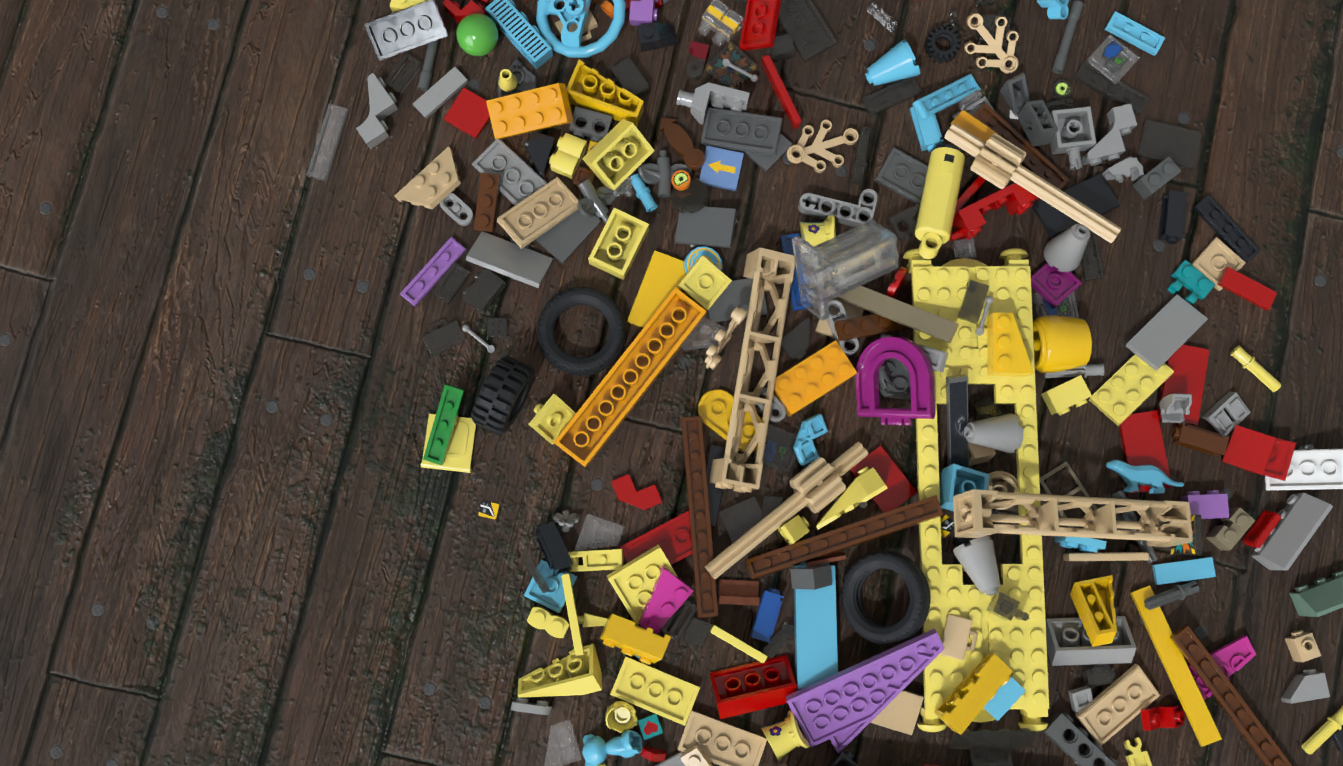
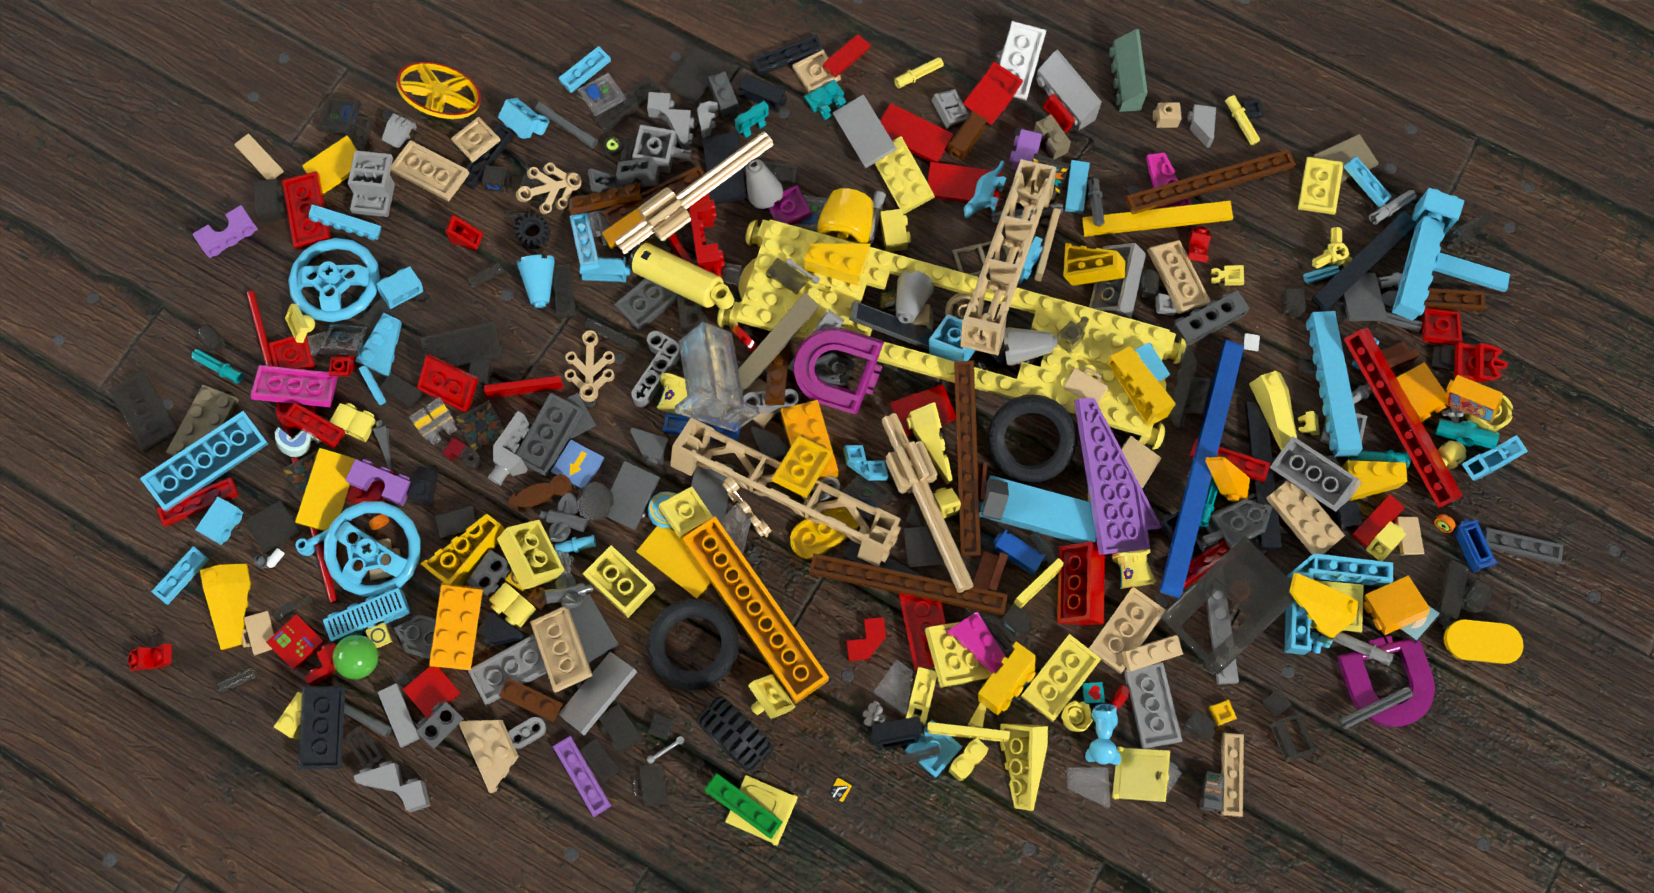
camera: 70 degrees left, 10 degrees down
(327, 142) = (406, 848): clear tile -> none
(439, 134) = (443, 727): none -> dark grey brick
(506, 49) = (379, 635): none -> light yellow tile
(507, 80) = (418, 642): light yellow cone -> none
(540, 707) = (1048, 793): light grey plate -> none
(681, 180) = (577, 504): tile -> none
(726, 63) = (476, 427): light grey hinge -> none
(760, 229) = (651, 446): none -> dark grey slope
(781, 378) = (802, 466): none -> yellow tile
(1000, 101) = (605, 199): none -> reddish brown plate
(1144, 217) = (754, 115): none -> teal plate
(1174, 407) = (932, 146): light grey hand -> none

